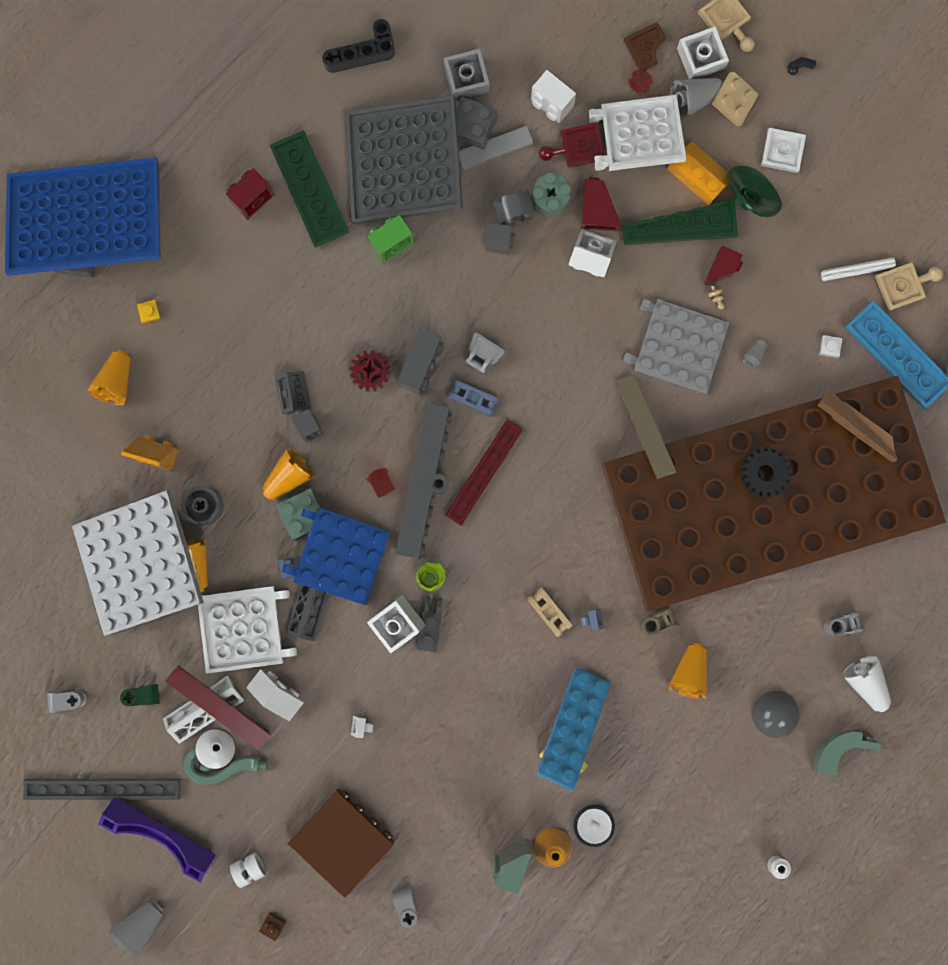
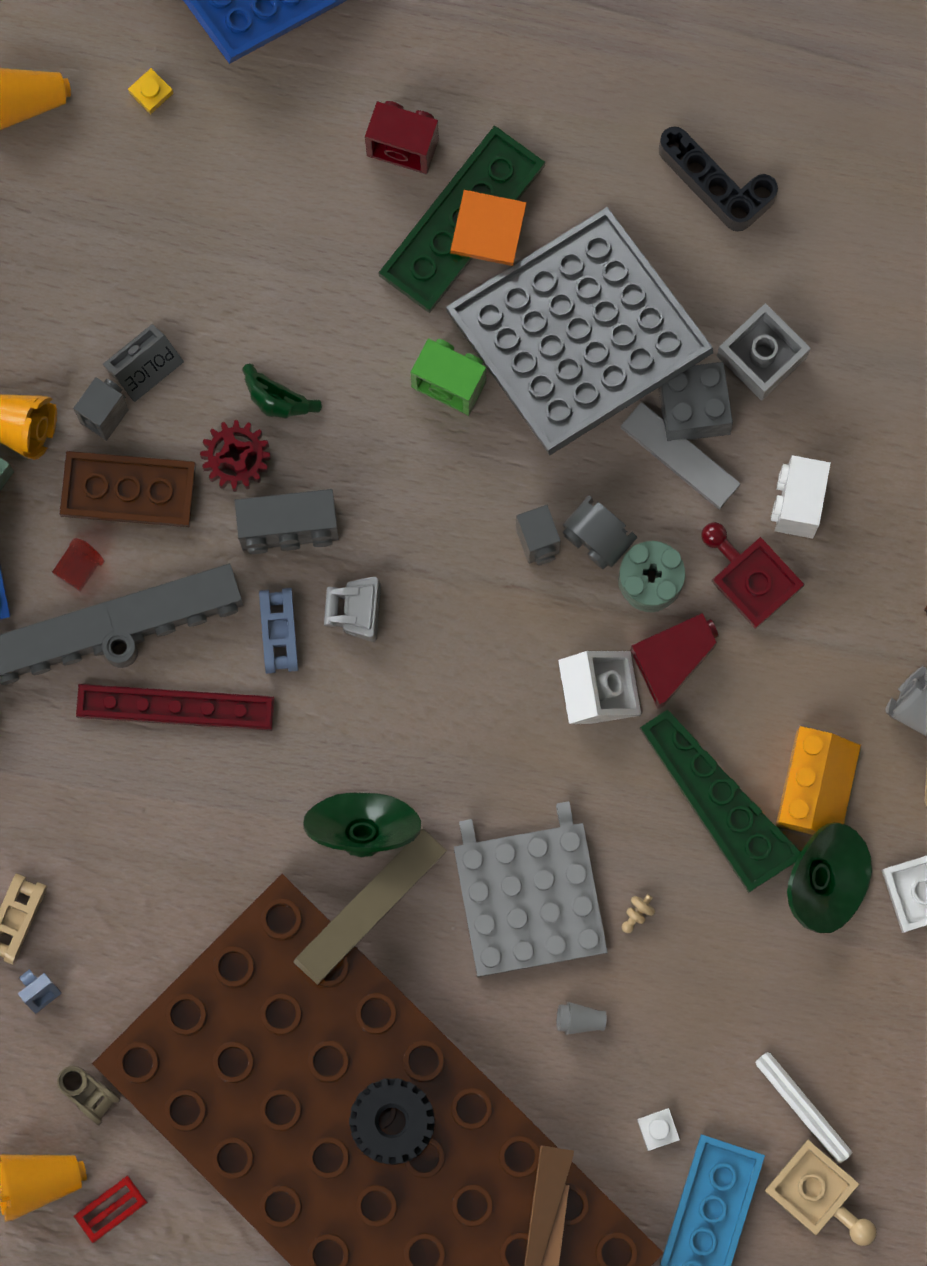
camera: 60 degrees right, 5 degrees down
(323, 176) = (488, 227): none -> orange tile
(350, 335) = (275, 398): none -> dark green piece
(356, 435) = (127, 489): none -> reddish brown plate
(599, 408) = (362, 823): none -> dark green hat
(640, 81) = (905, 616): clear red gear -> none
(640, 133) = (820, 657): white plate -> none
(724, 265) = (690, 896): dark red slope -> none
(724, 644) = (134, 1192): none -> red tile

